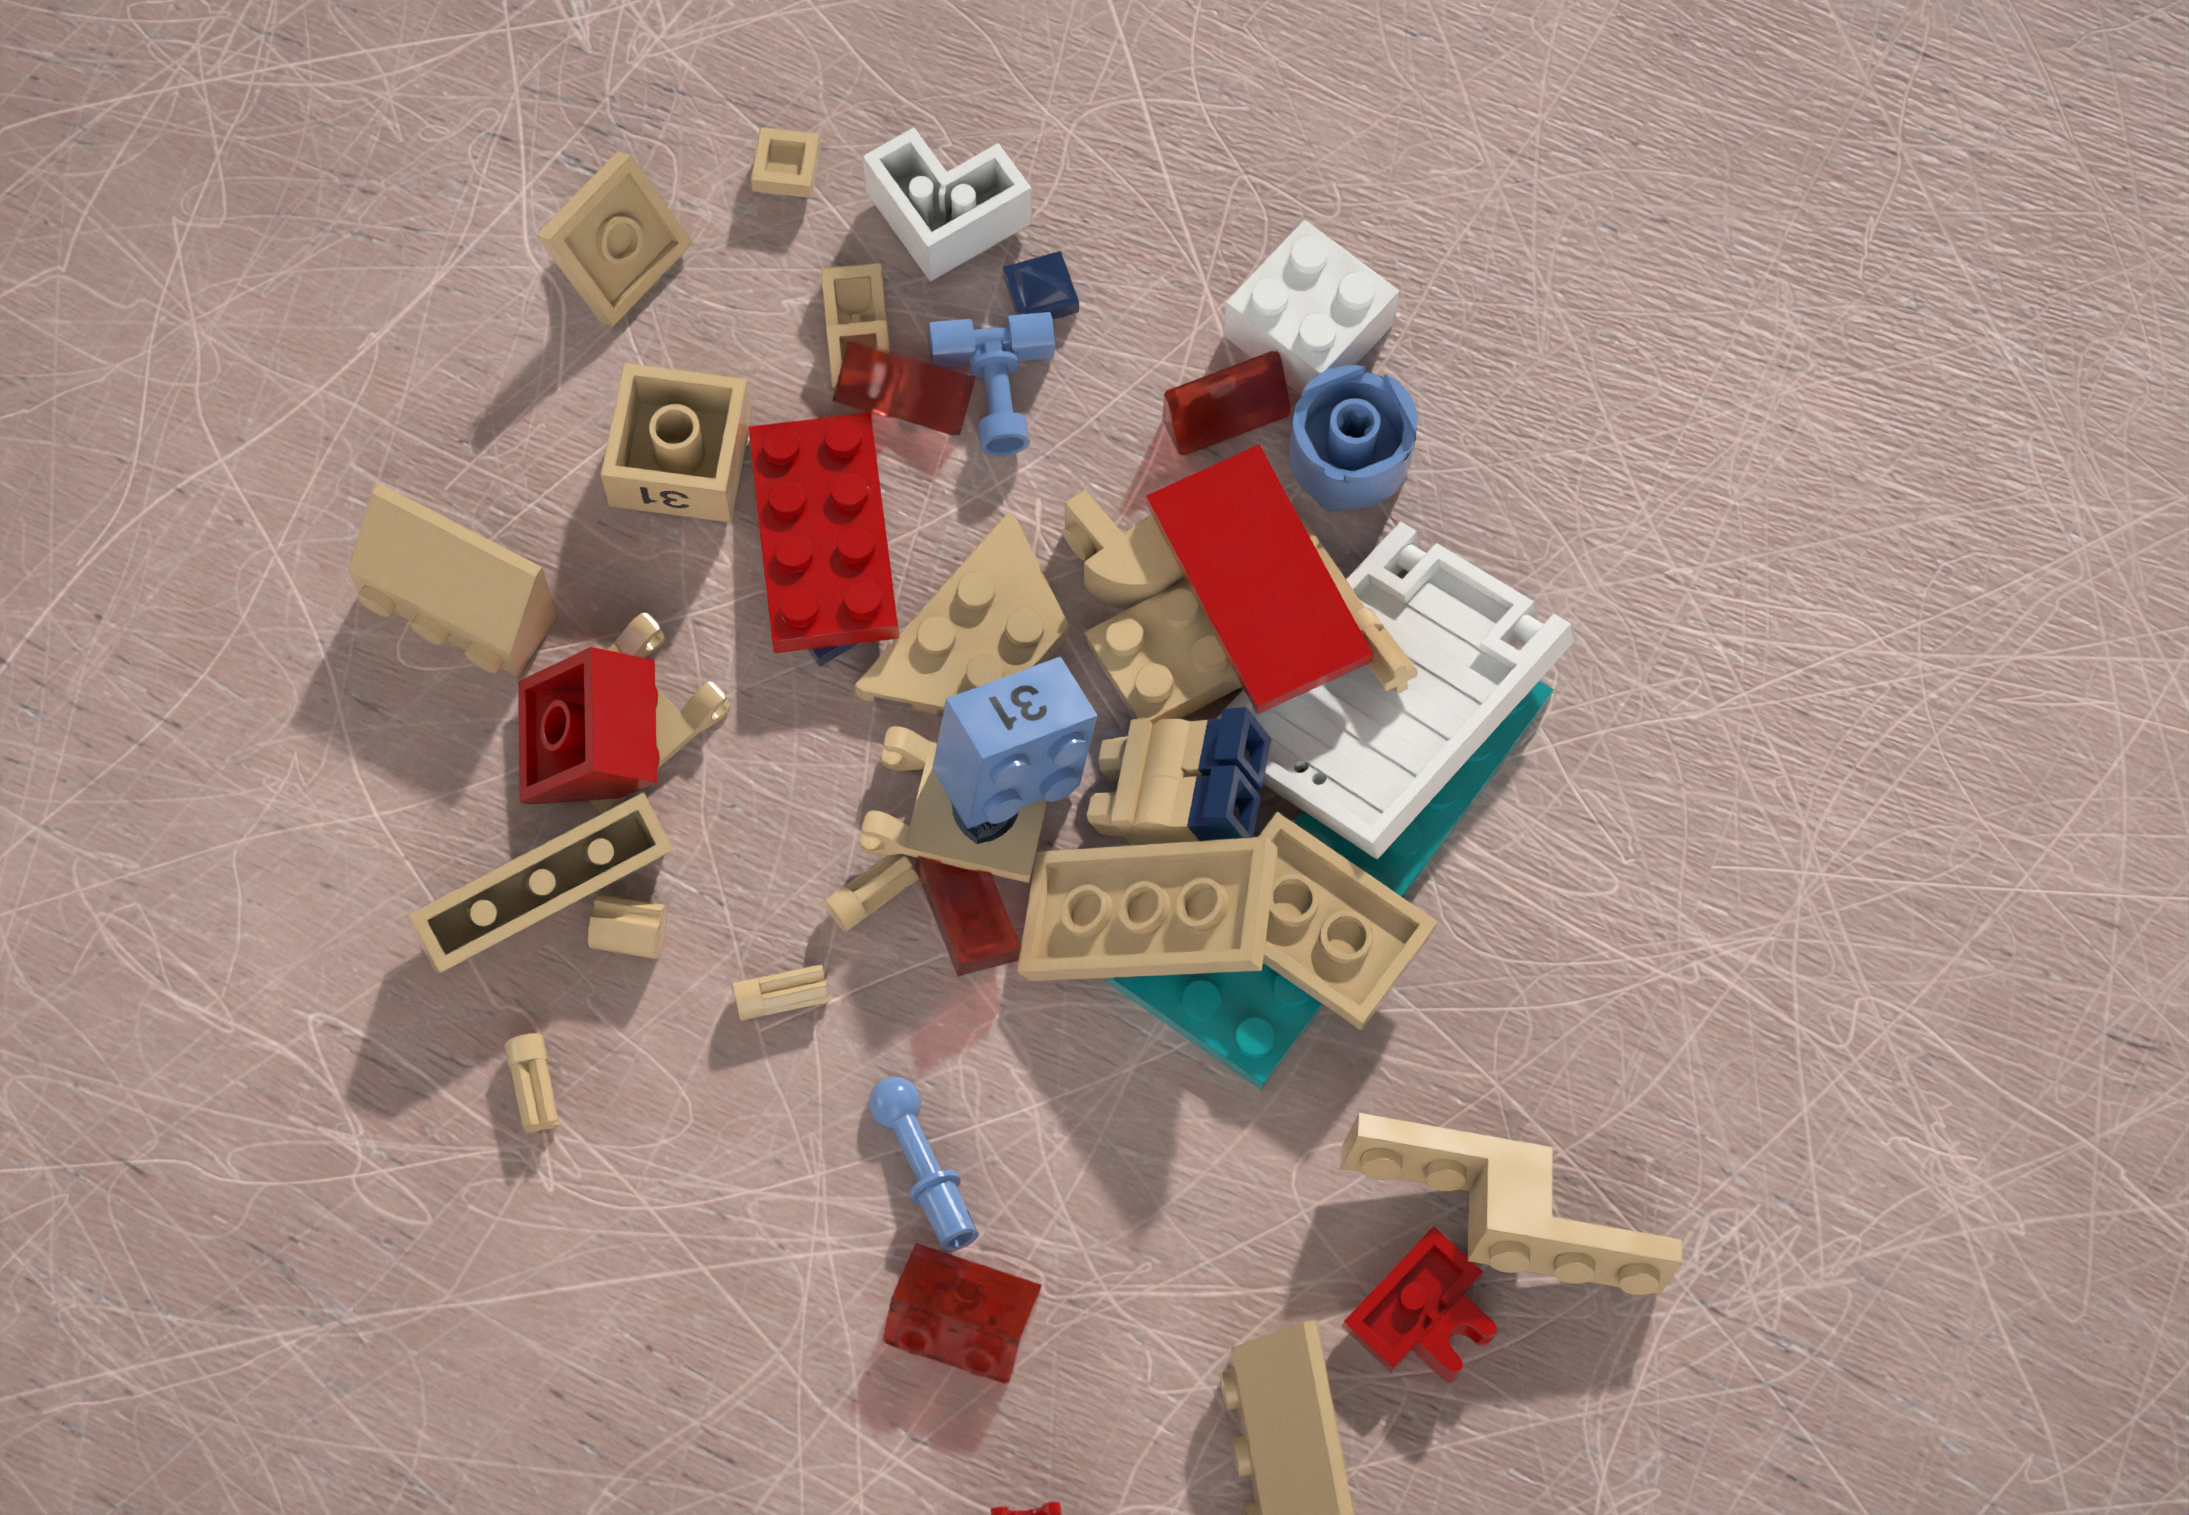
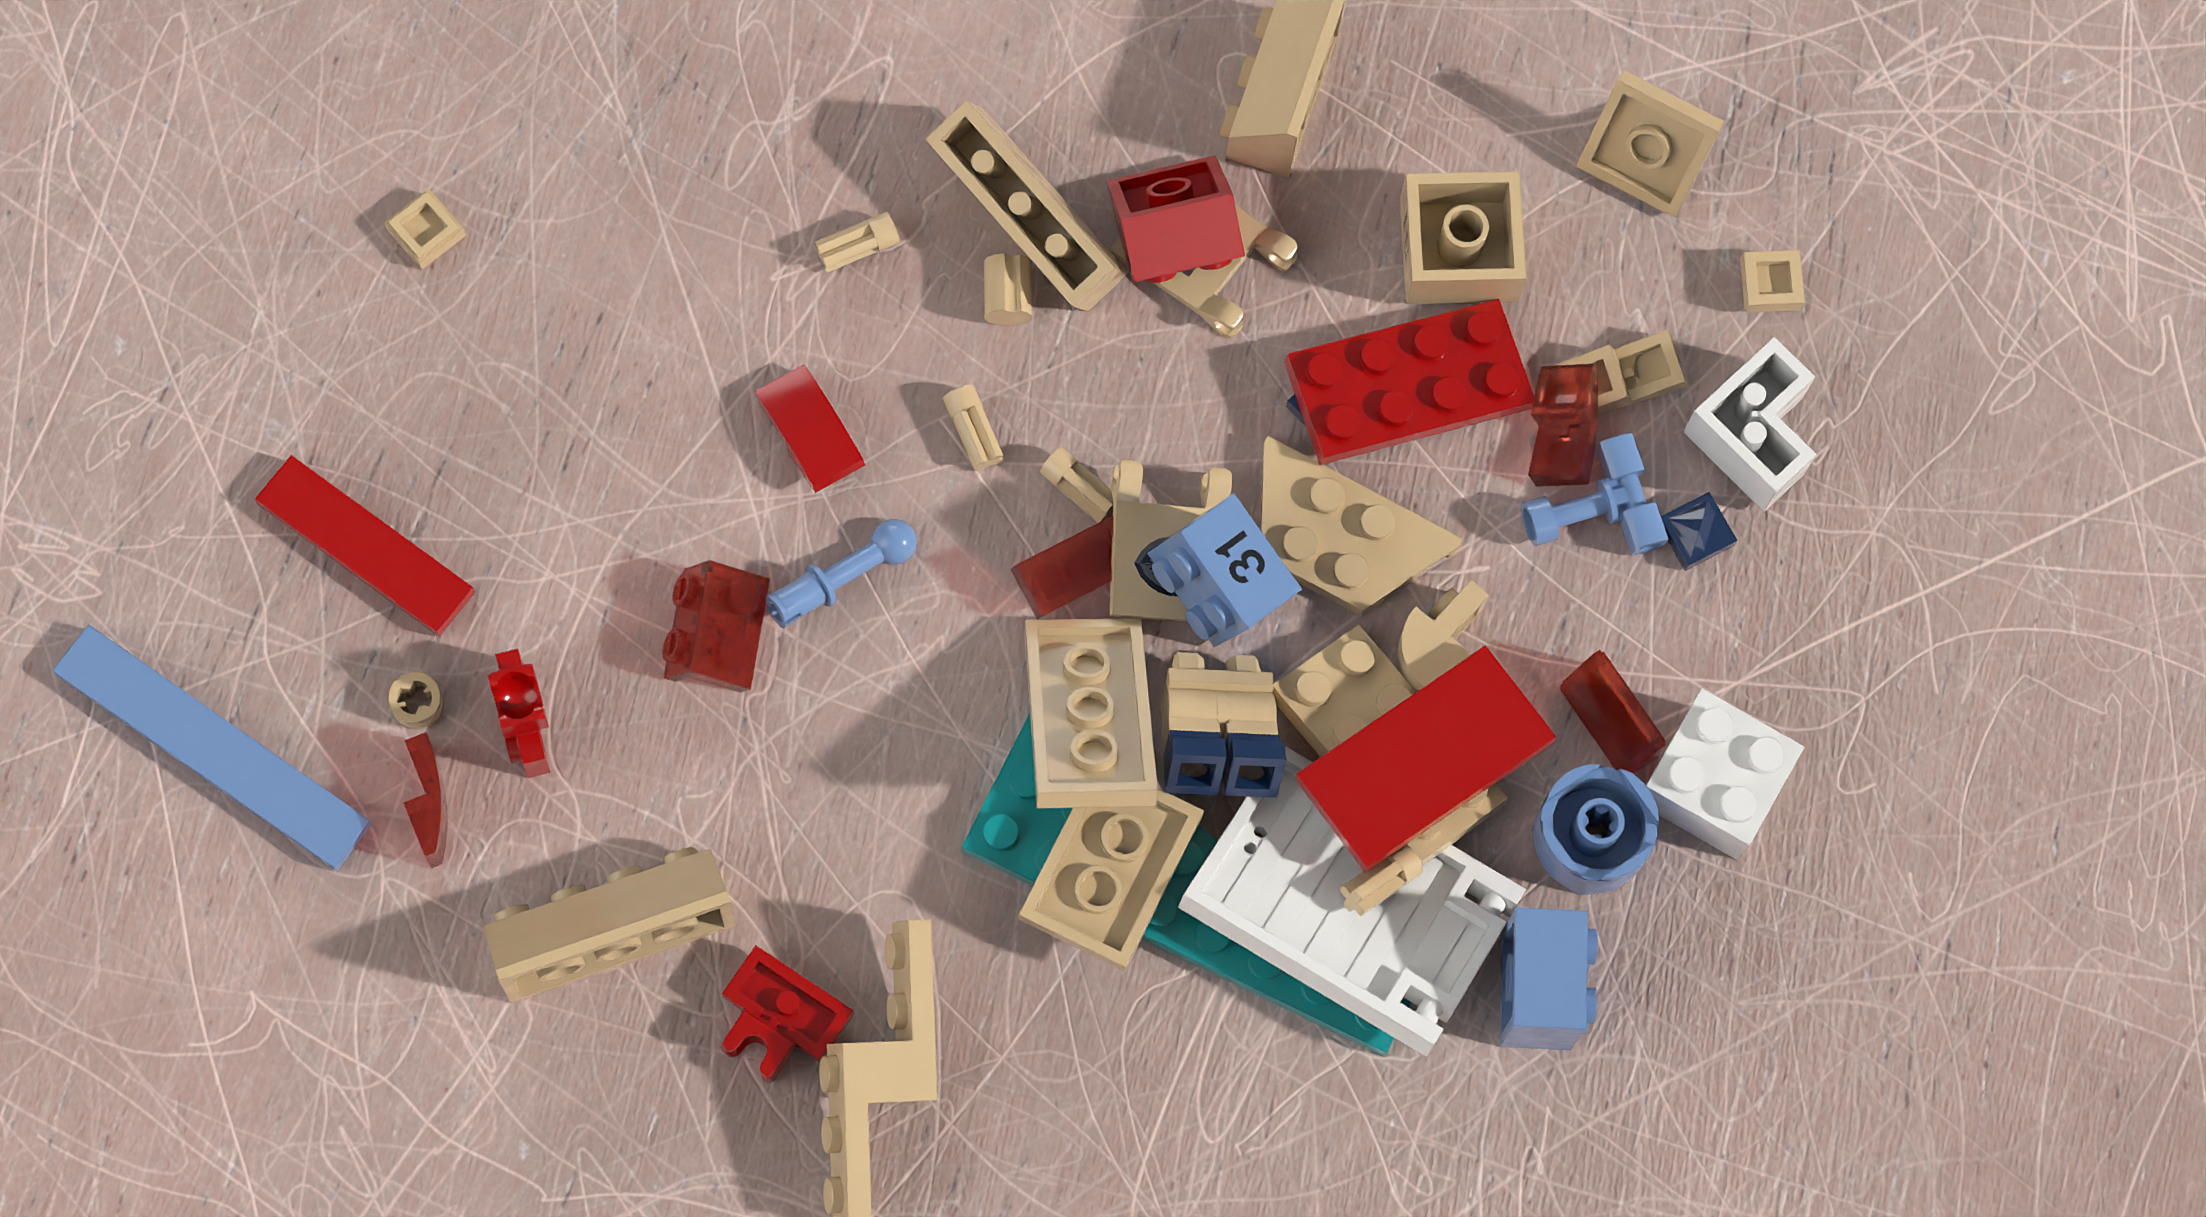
camera: 75 degrees right, 5 degrees up
(745, 1169) = (810, 428): none -> red slope
(1510, 511) = (1546, 978): none -> medium blue brick

